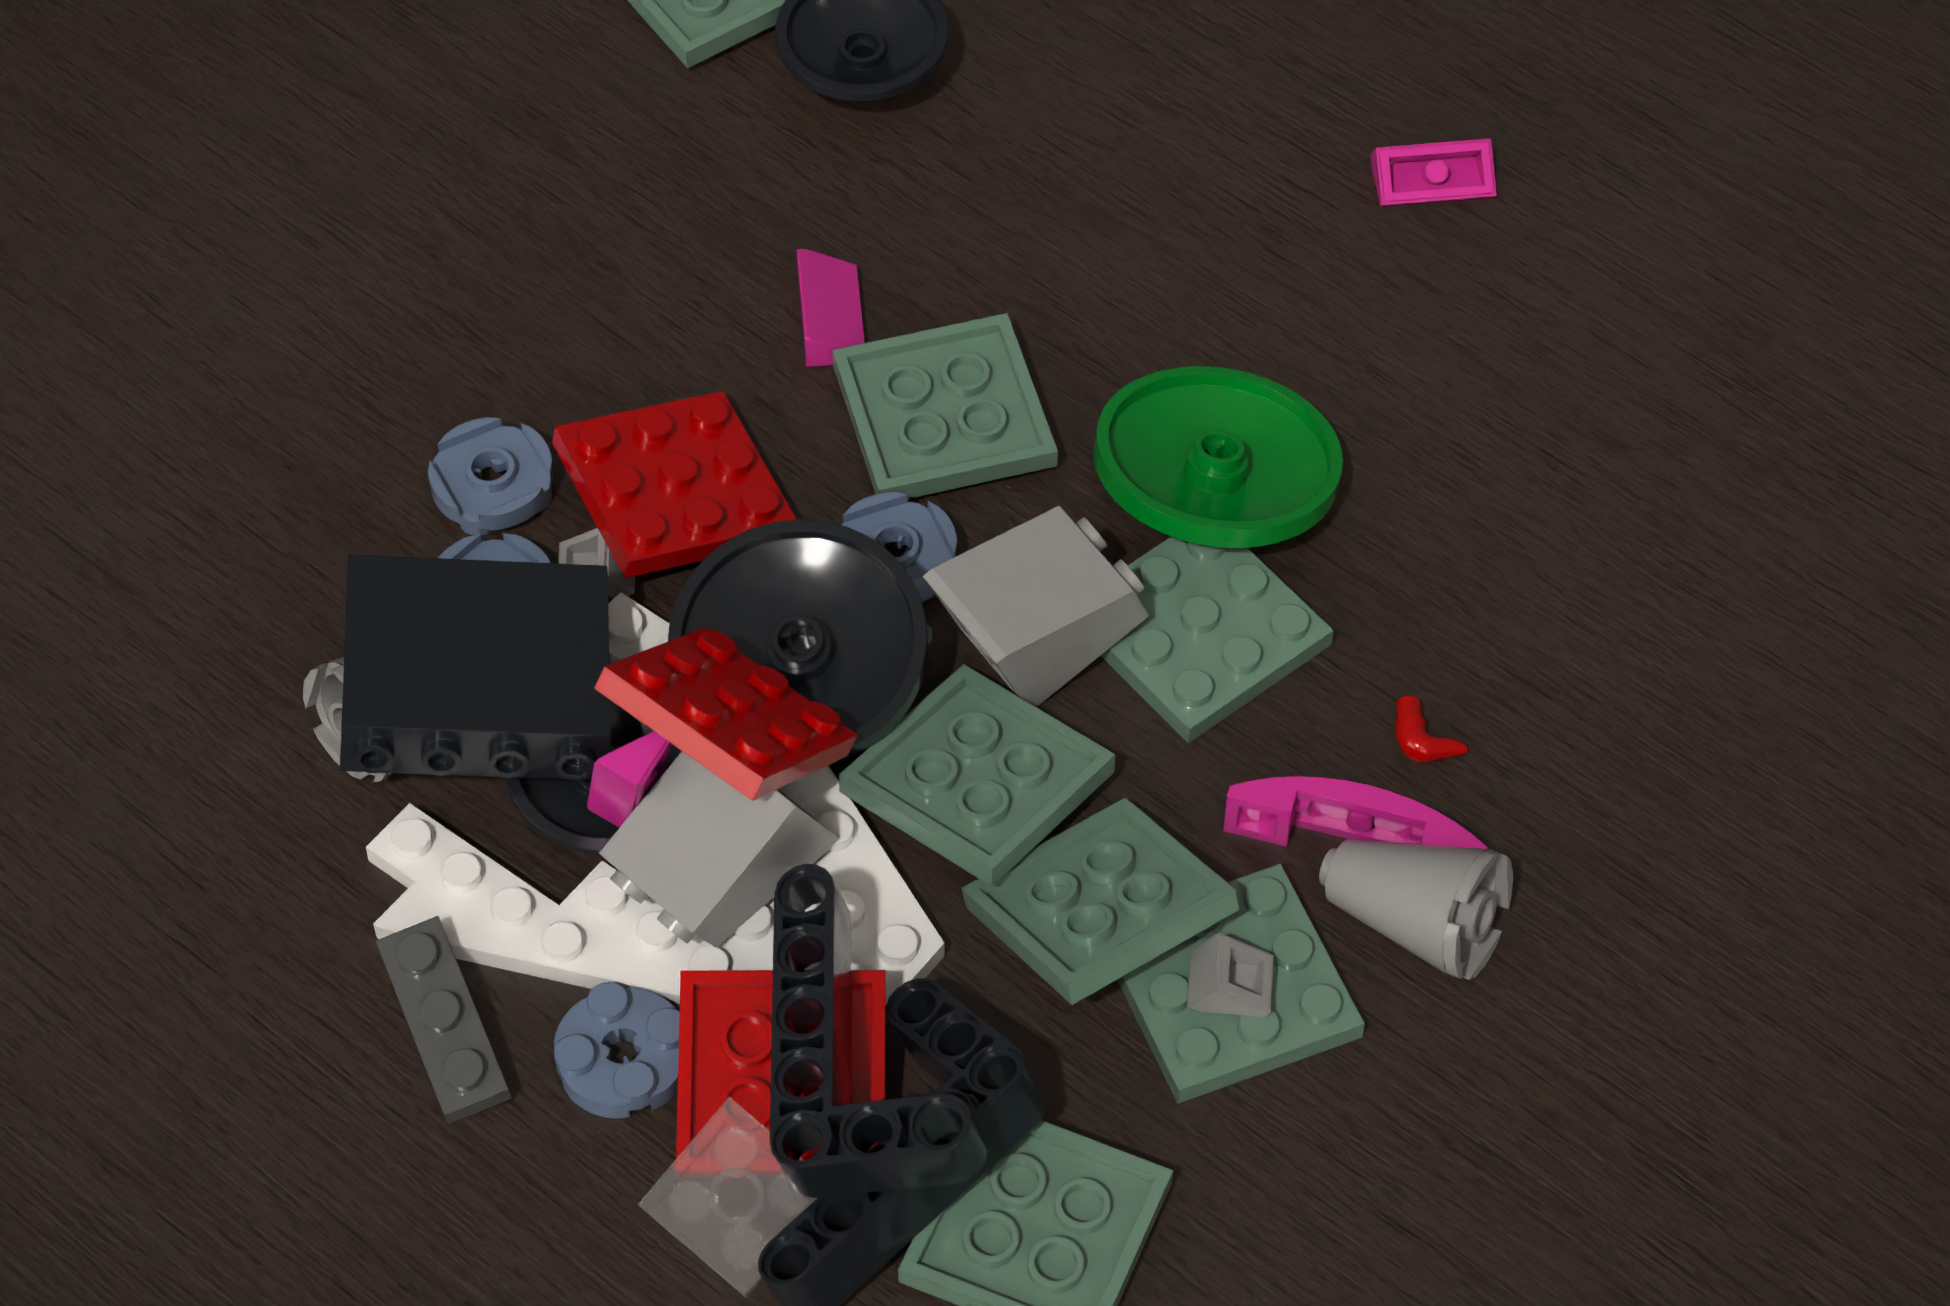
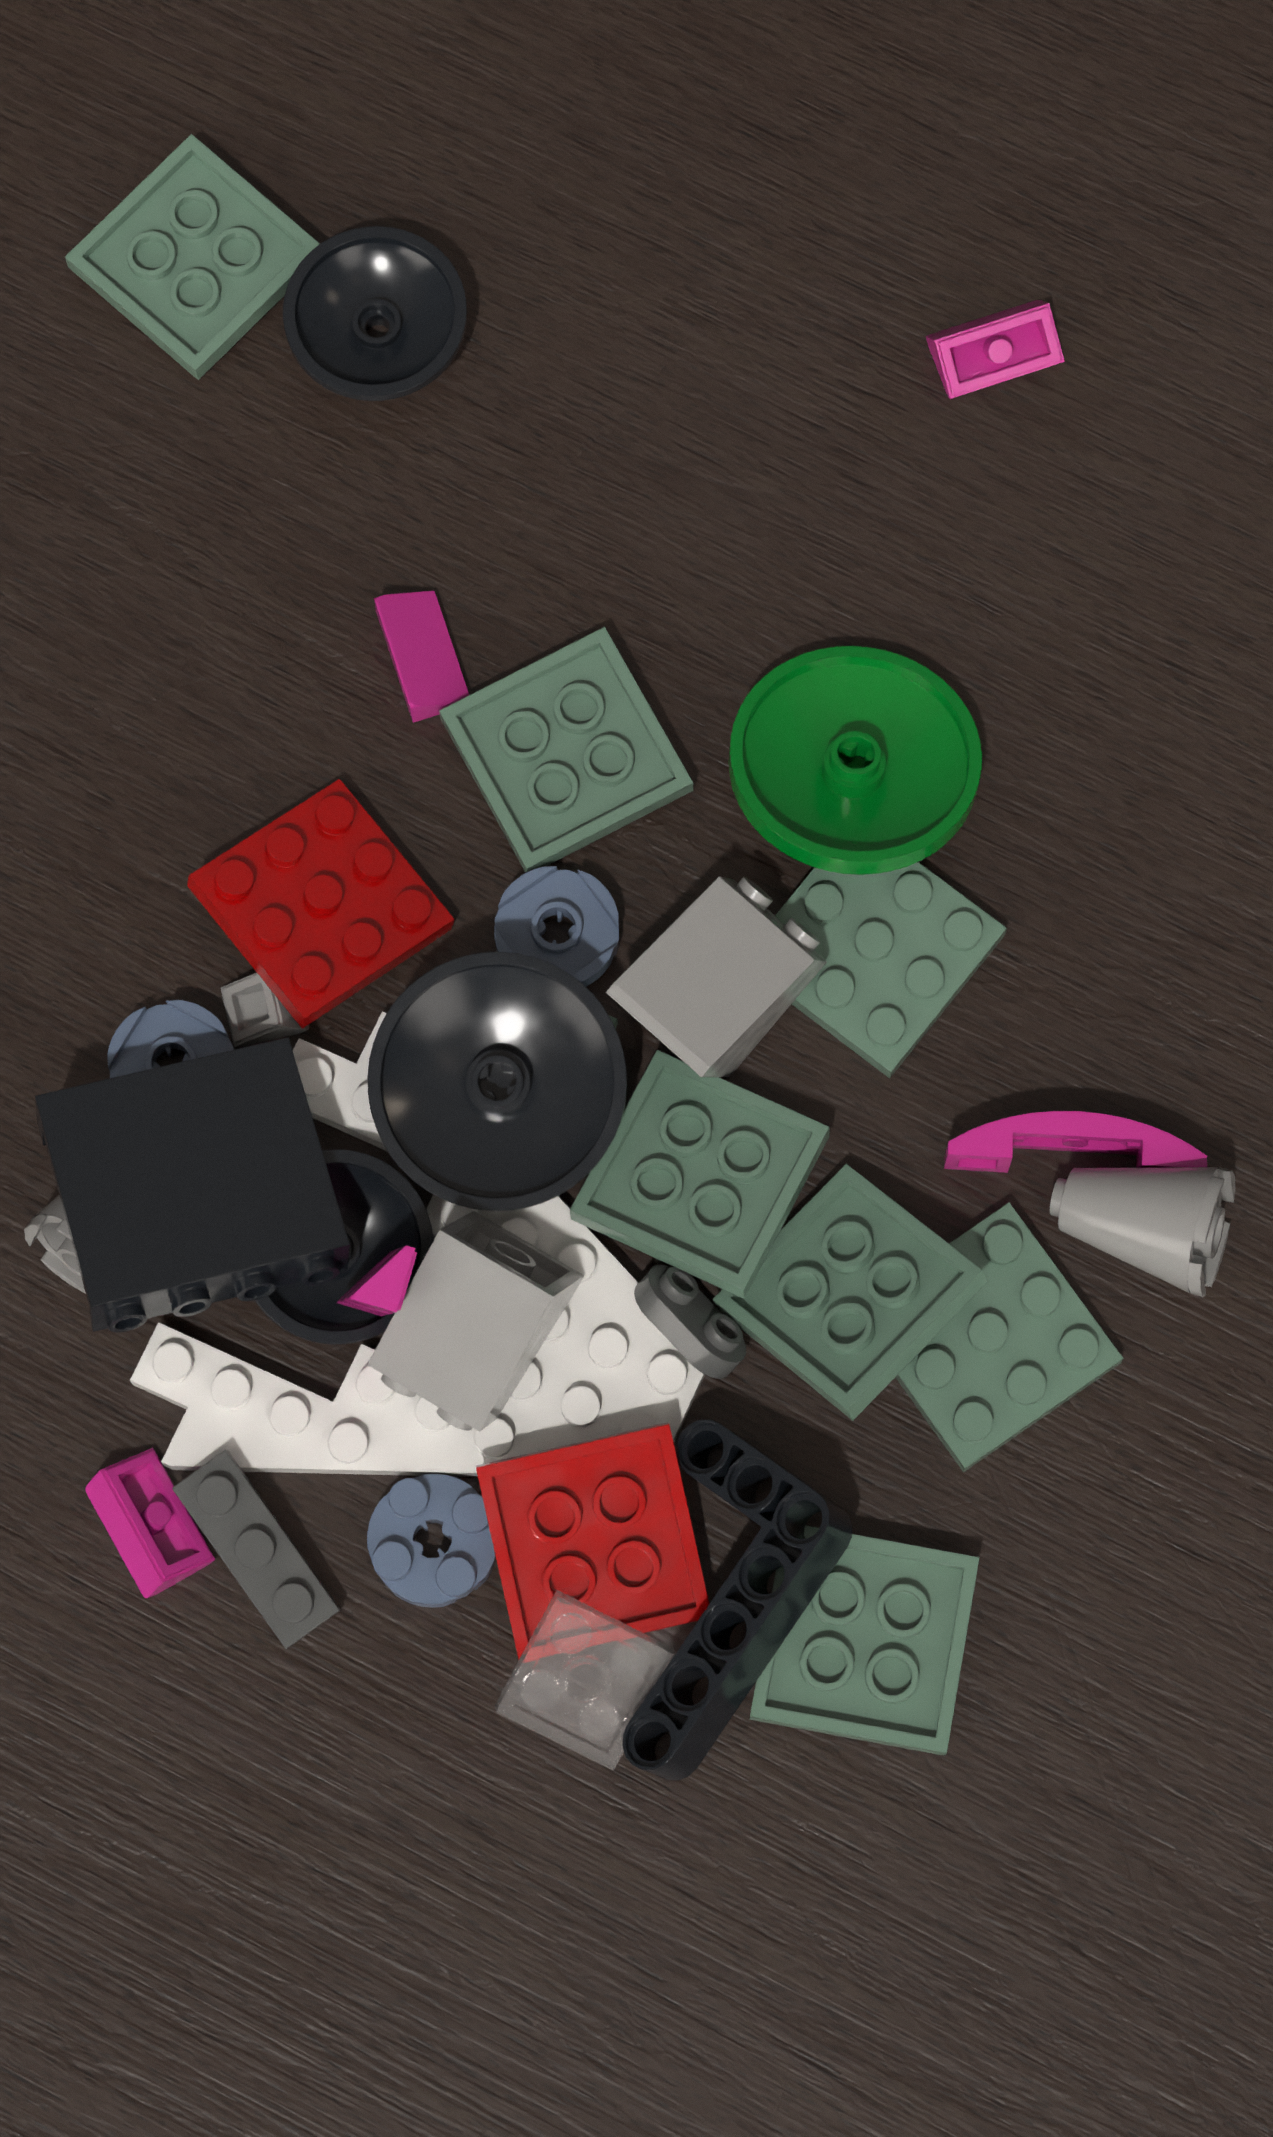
camera: 10 degrees left, 20 degrees up
(344, 980) = (148, 1522): none -> dark pink slope
(497, 503) = (136, 893): sand blue plate -> none
(727, 712) = (458, 1202): red plate -> none
(823, 1058) = (644, 1544): black beam -> none
(933, 902) = (690, 1321): none -> dark grey plate
(1230, 978) = (991, 1347): light grey slope -> none
(1414, 739) = (1106, 1029): red animal -> none

